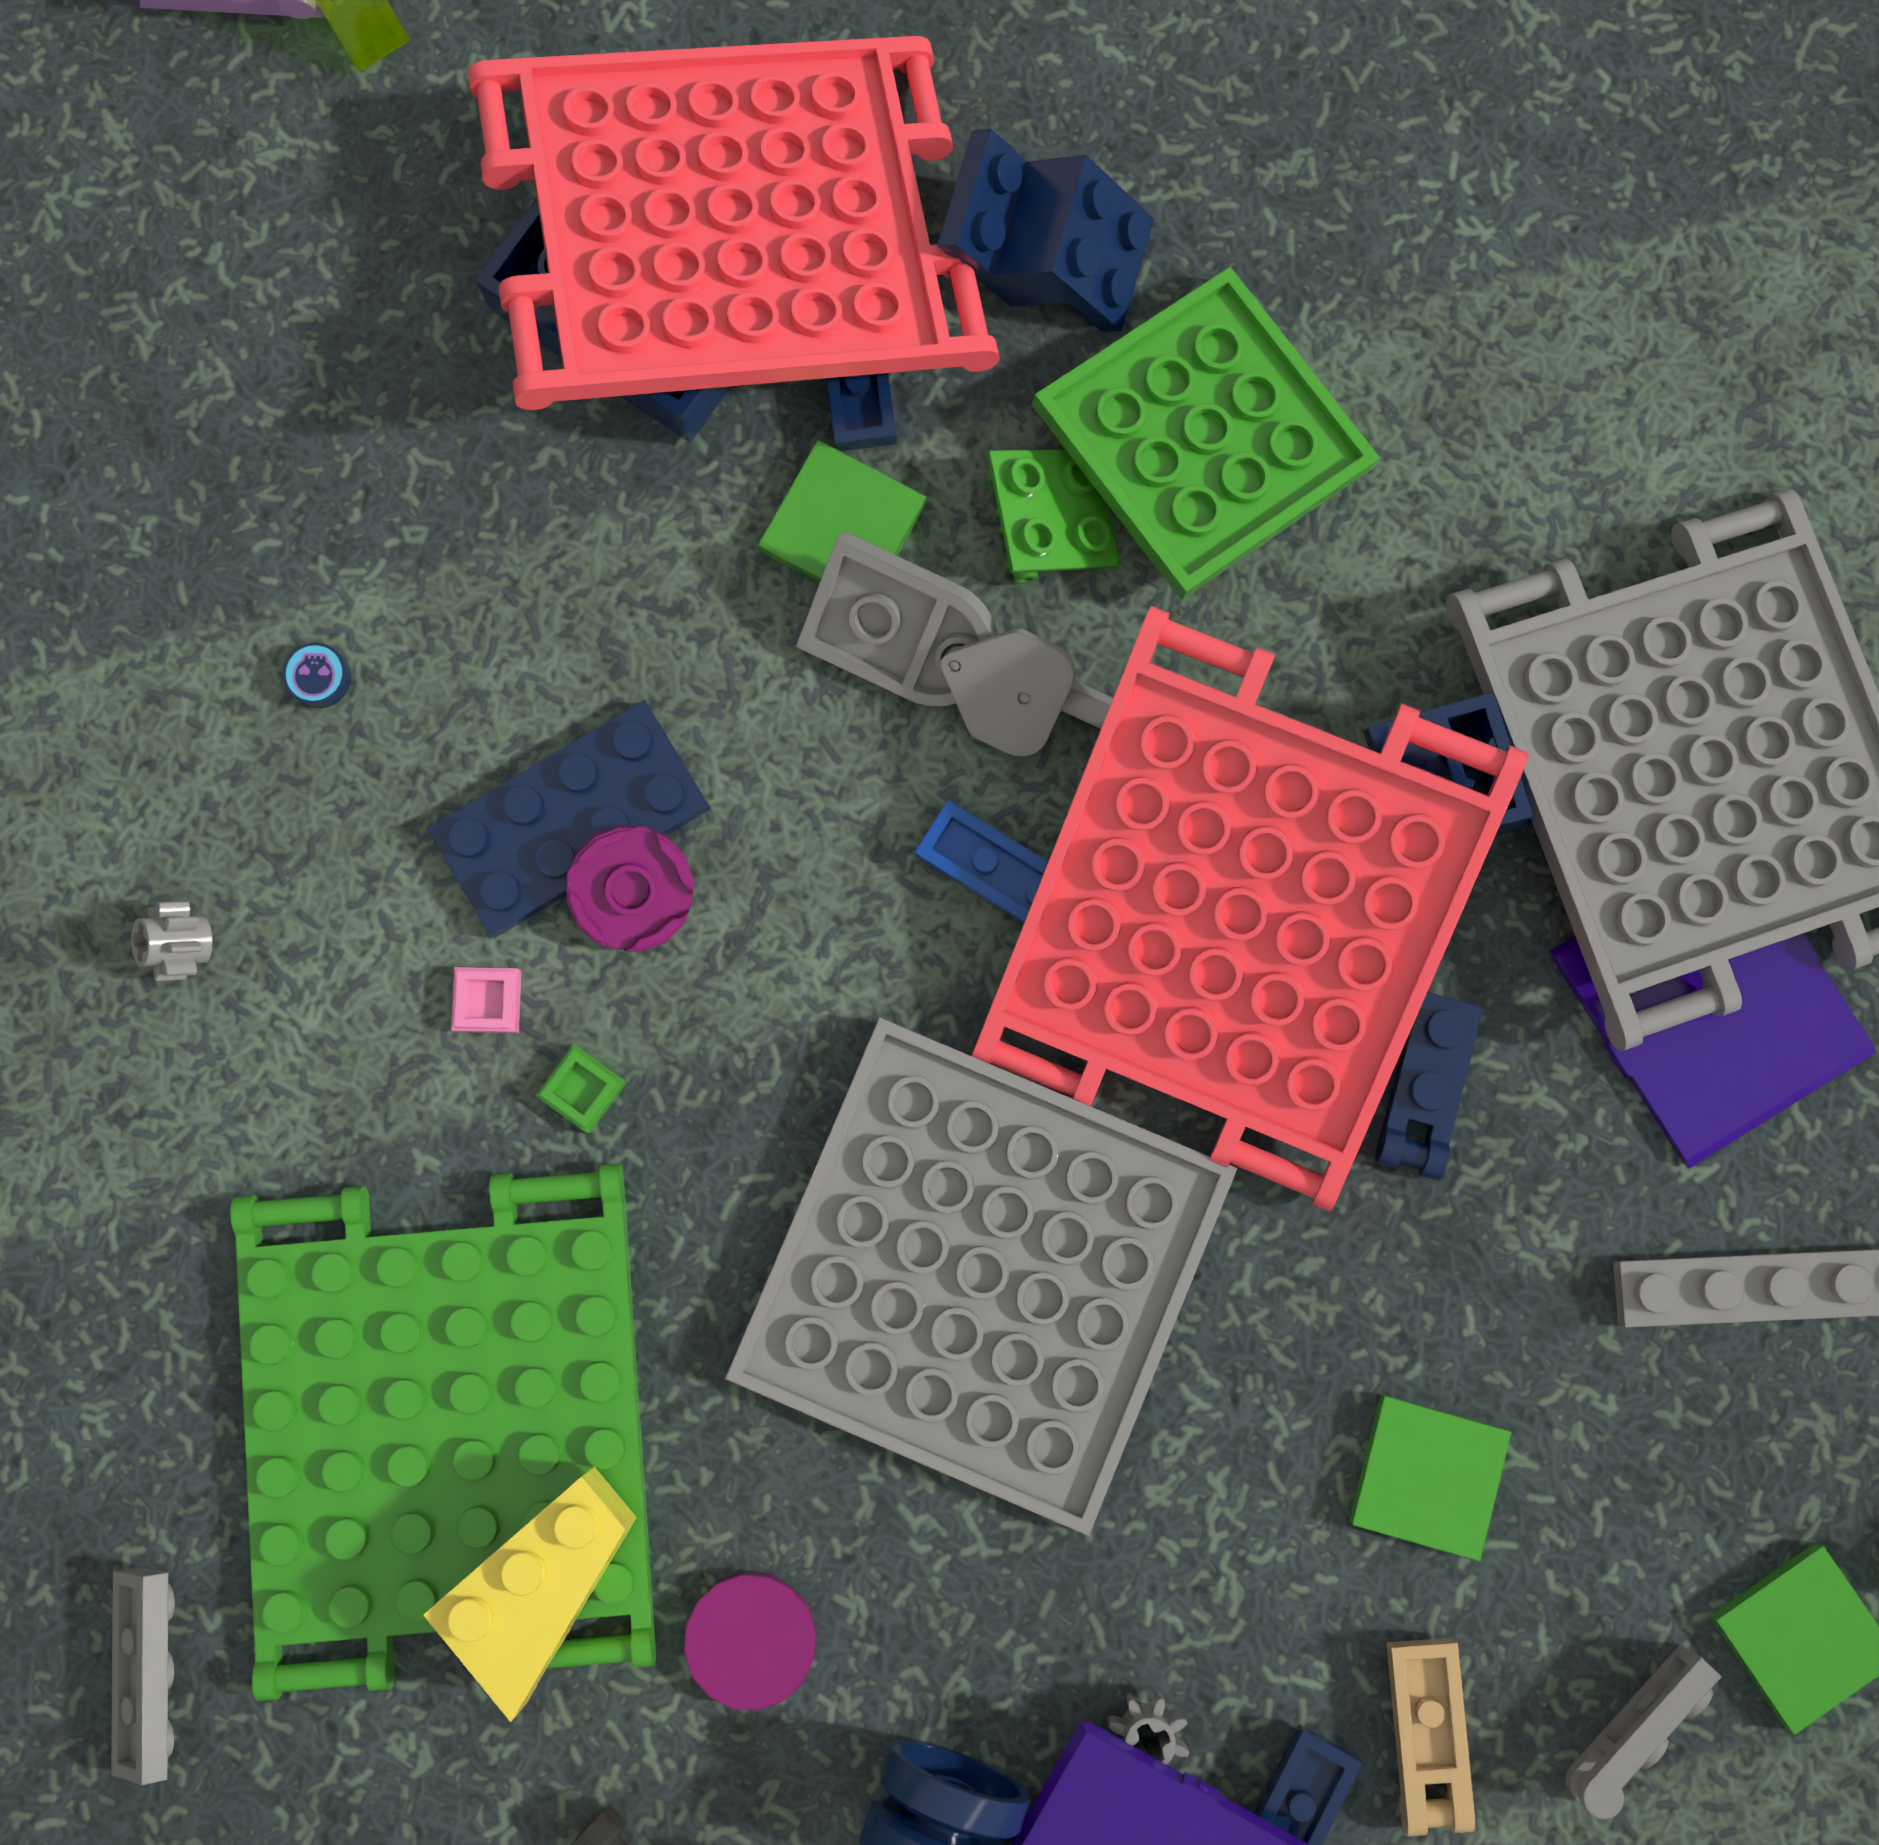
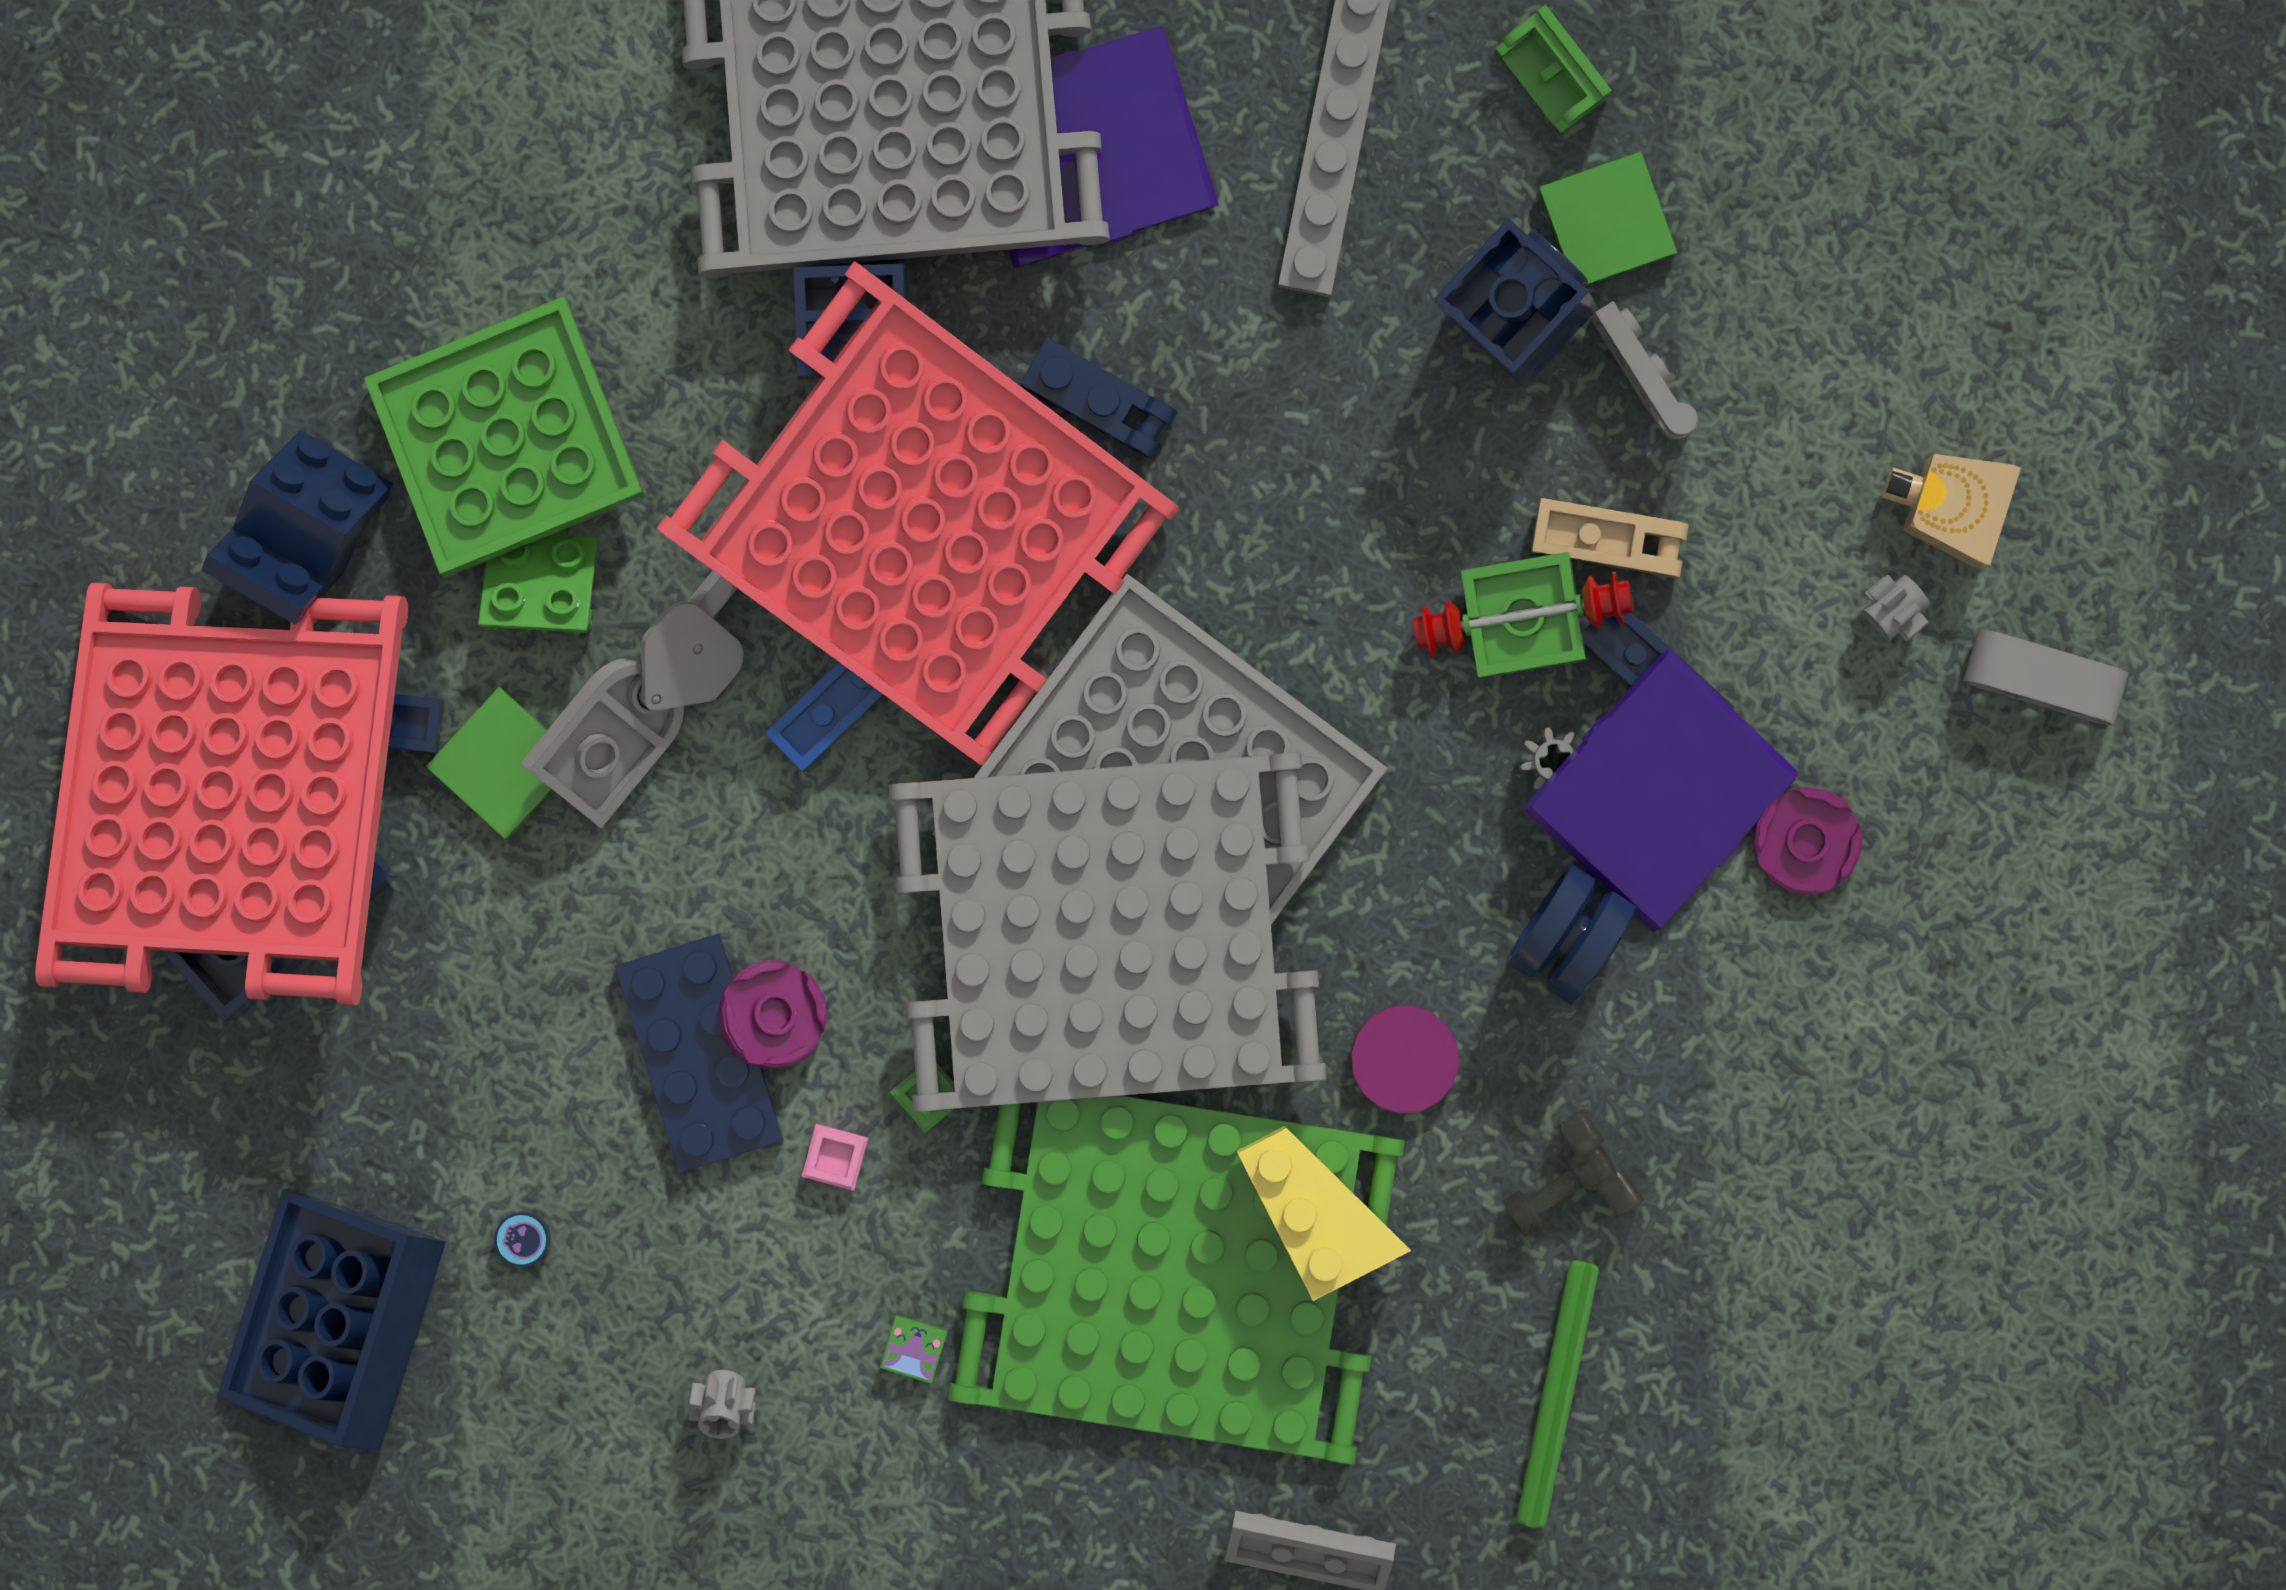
camera: 80 degrees left, 5 degrees up
(175, 491) = (331, 1321): none -> dark blue slope
(286, 1144) = (914, 1348): none -> tile
(813, 1253) = (1107, 932): none -> light grey plate
(1314, 1661) = (1523, 615): none -> bright green plate
(1430, 1477) = (1410, 483): bright green tile -> none
(1694, 1561) = (1518, 301): none -> dark blue brick

